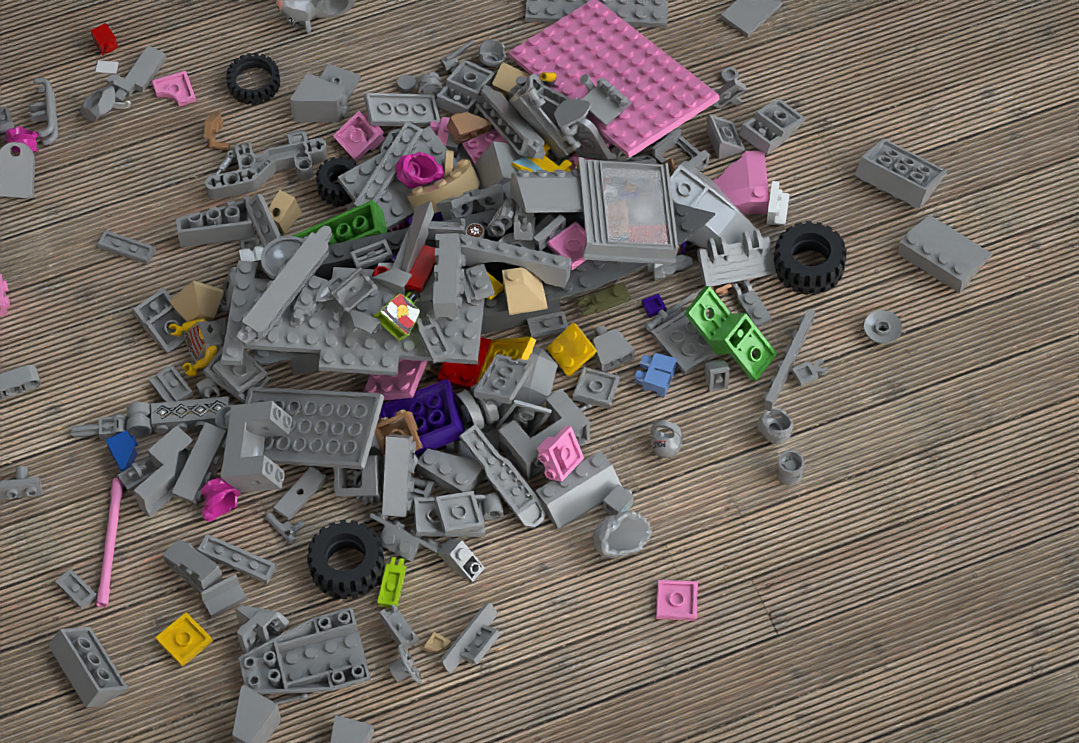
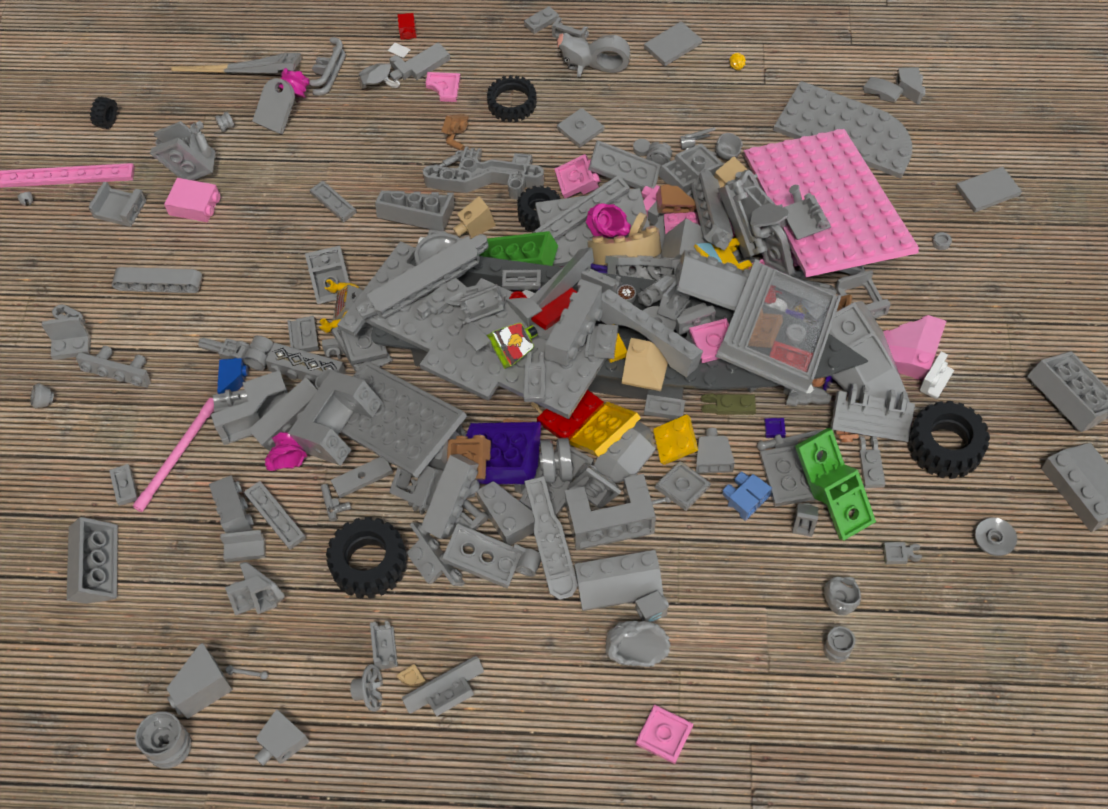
camera: 25 degrees right, 0 degrees up
(184, 639) = (187, 572): yellow plate -> none
(197, 301) = (358, 267): tan slope -> none
(262, 219) = (452, 214): light grey plate -> none
(309, 658) = (285, 641): light grey wedge -> none
(319, 101) = (555, 134): light grey slope -> none
(392, 583) = (399, 599): lime hinge -> none
(399, 386) = (496, 411): bright pink plate -> none
(459, 512) = (491, 556): light grey plate -> none
(461, 559) = (474, 602): light grey slope -> none
(503, 379) = (588, 443): light grey piece -> none
(548, 78) = (765, 180): yellow arm -> none
(560, 454) = (611, 538): bright pink plate -> none
(666, 444) = (724, 568): light grey helmet -> none
(723, 137) = (912, 294): light grey slope -> none
(730, 93) = (933, 255): light grey plate -> none
(771, 126) = (963, 300): light grey slope -> none
(785, 366) = (878, 537): light grey plate -> none

